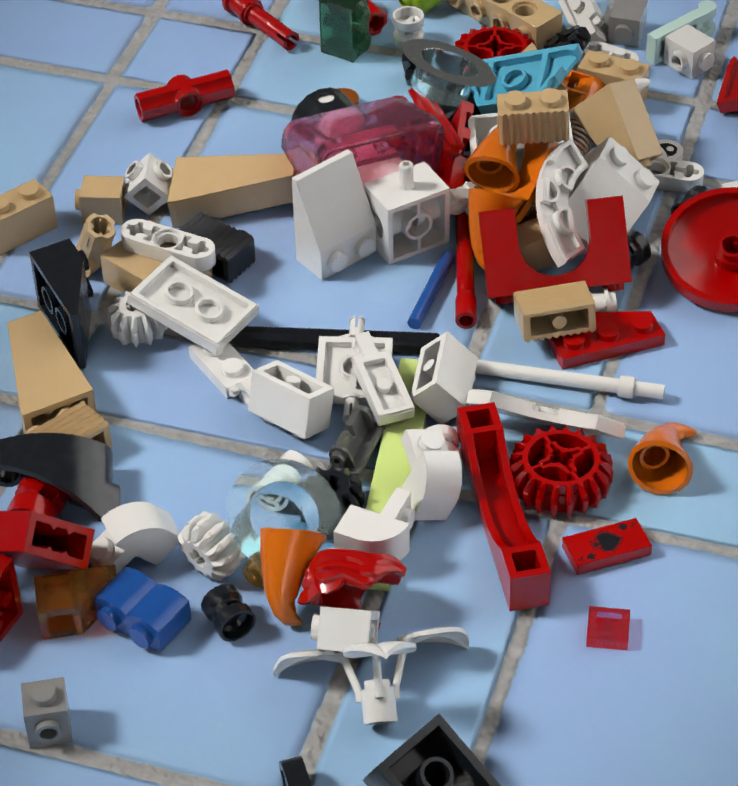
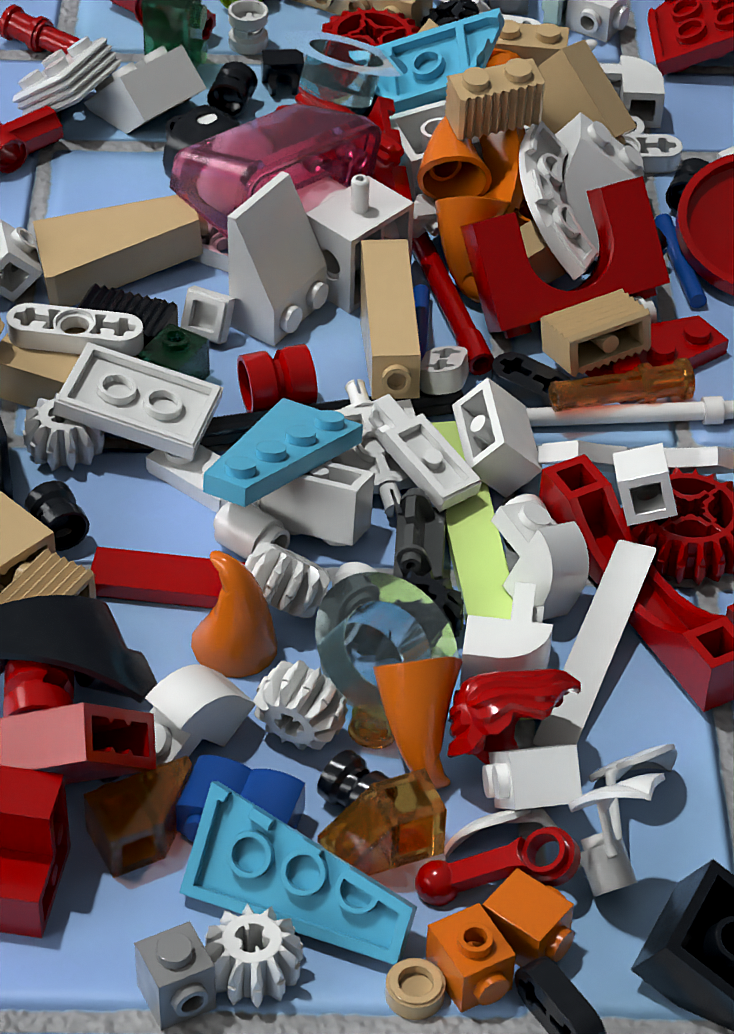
camera: 20 degrees left, 0 degrees up
(105, 711) = (254, 955): none -> white gear
(106, 377) = (57, 509): none -> black wheel
(149, 665) = (261, 861): none -> medium azure wing
(168, 438) = (156, 577): none -> red tile
(196, 481) = (239, 630): none -> orange hat
(210, 759) = (415, 989): none -> tan tile
(232, 644) = (389, 825): none -> clear orange slope
(236, 416) = (244, 527): none -> white brick
(236, 450) = (288, 579): none -> white gear
(241, 275) = (179, 351): none -> clear green brick
(250, 48) = (67, 76): none -> white brick
(253, 746) = (471, 957): none -> orange brick
(261, 690) = (441, 881): none -> red piece
(270, 358) = (279, 450): none -> medium azure wing
(277, 248) = (208, 313): none -> white tile
(304, 306) = (268, 380): none -> red wheel
(304, 729) = (531, 918): none -> orange brick
(309, 67) = (146, 89): none -> white slope
(374, 76) = (232, 88): none -> black wheel
(399, 275) = (389, 319): none -> tan slope
(431, 320) = (444, 370): none -> white beam
(447, 546) = (597, 641): none -> white sticker
(502, 339) = (525, 378): none -> black beam
(522, 433) = (644, 484): none -> white brick
(575, 357) = (642, 384): none -> clear orange pin
(660, 279) = (685, 273): none -> blue bar
(683, 119) = (639, 88): none -> white brick

